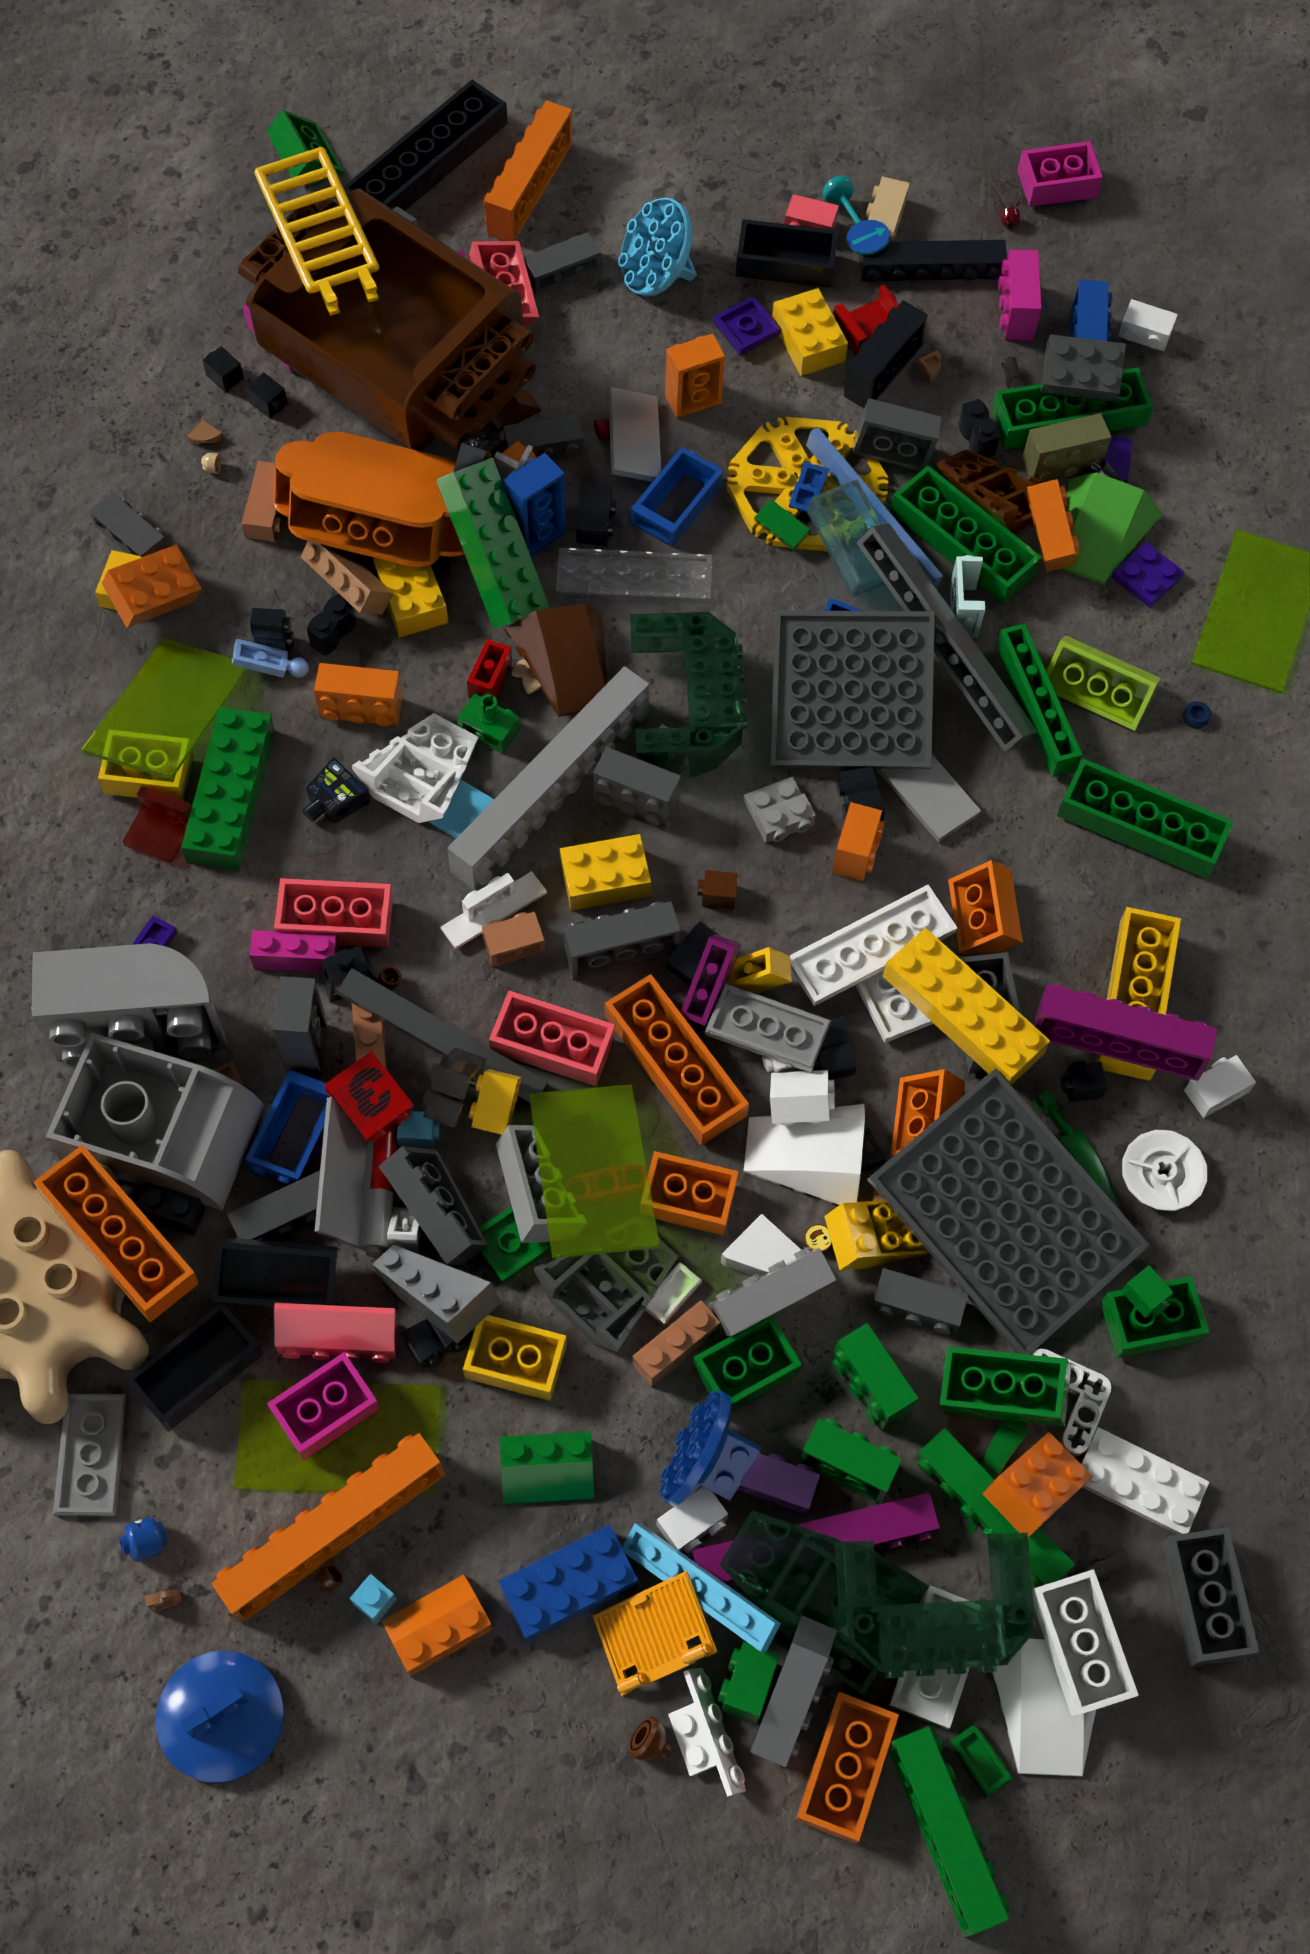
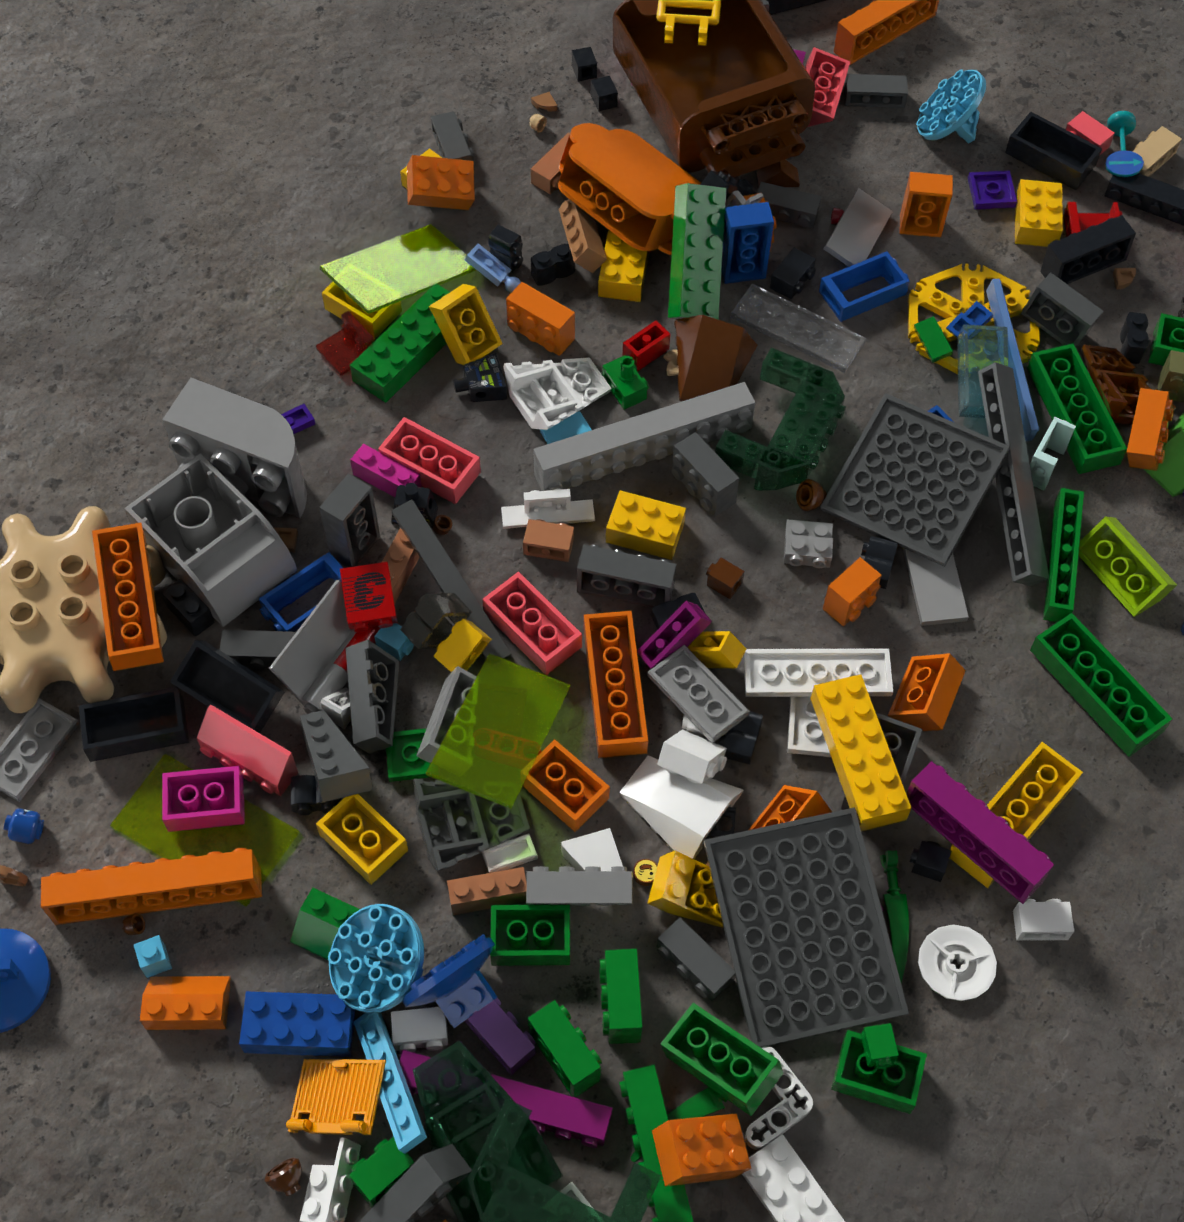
camera: 30 degrees right, 5 degrees down
(285, 740) = (465, 324): none -> yellow brick
(616, 1474) = (376, 958): none -> medium azure bracket
(753, 757) = (810, 495): none -> reddish brown brick

